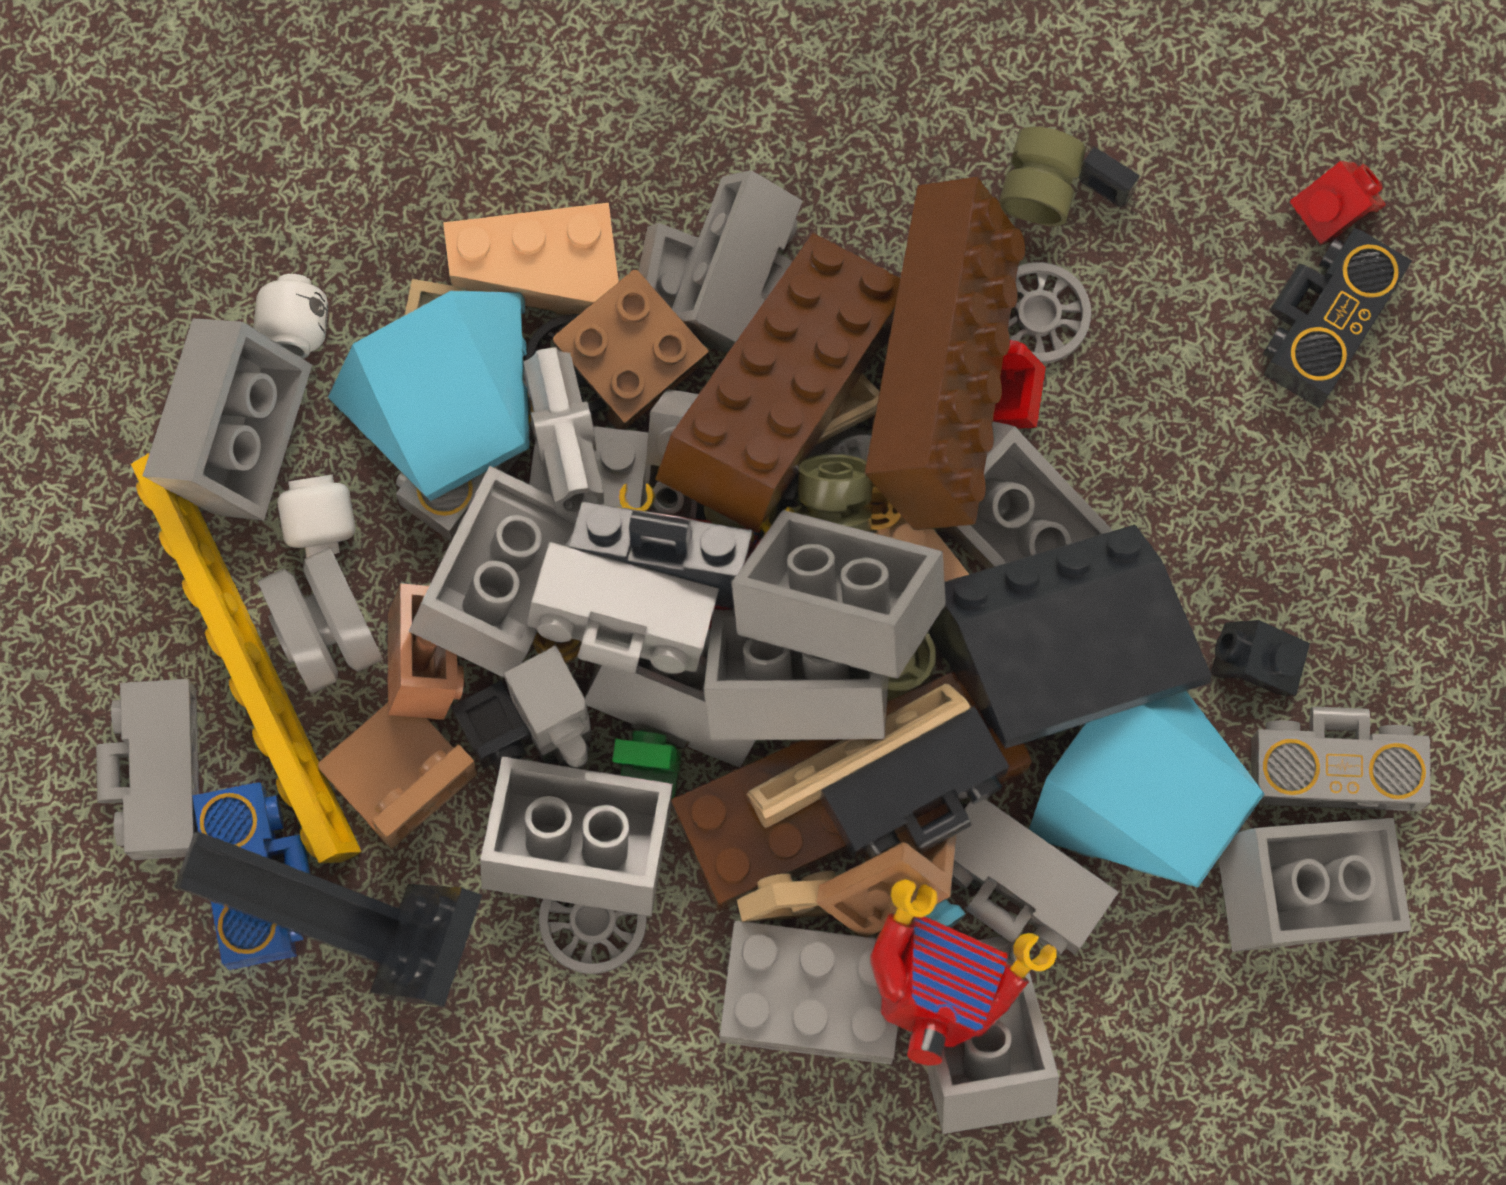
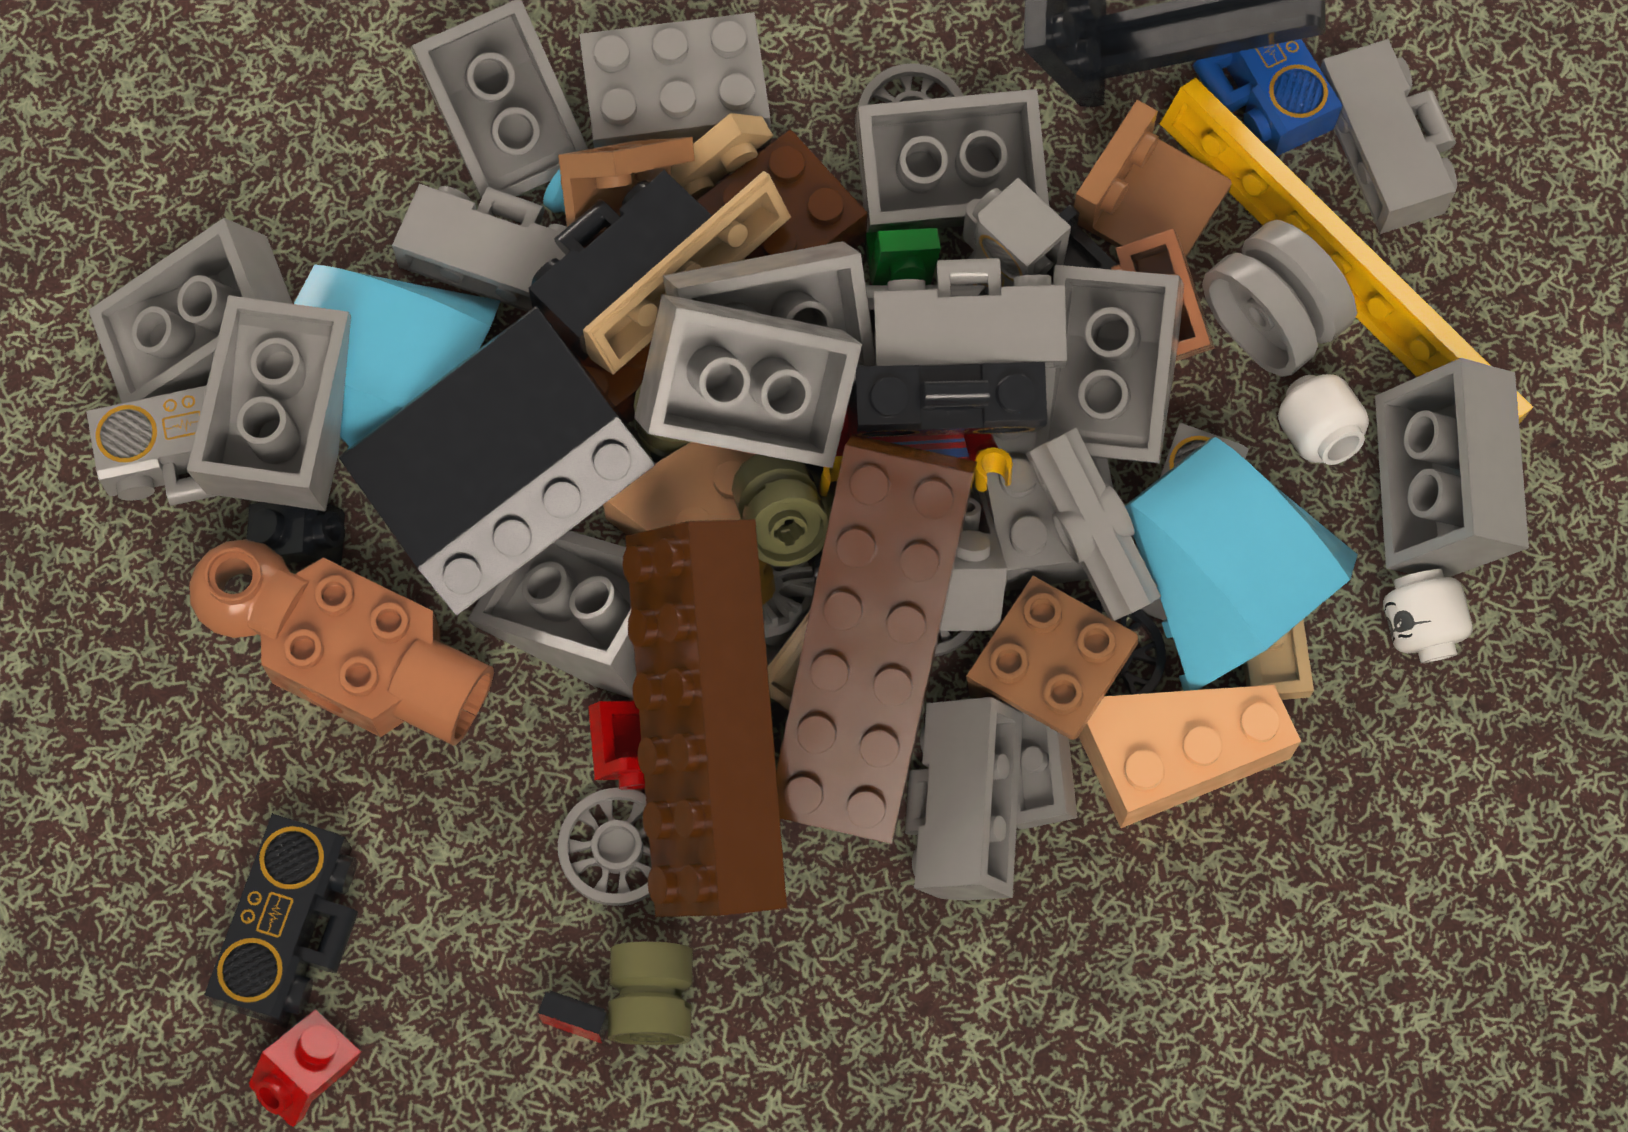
camera: 165 degrees right, 5 degrees down
(943, 980) = (541, 96): red torso -> none
(1239, 536) = (342, 641): none -> nougat brick
(1262, 731) = (273, 404): none -> light grey slope

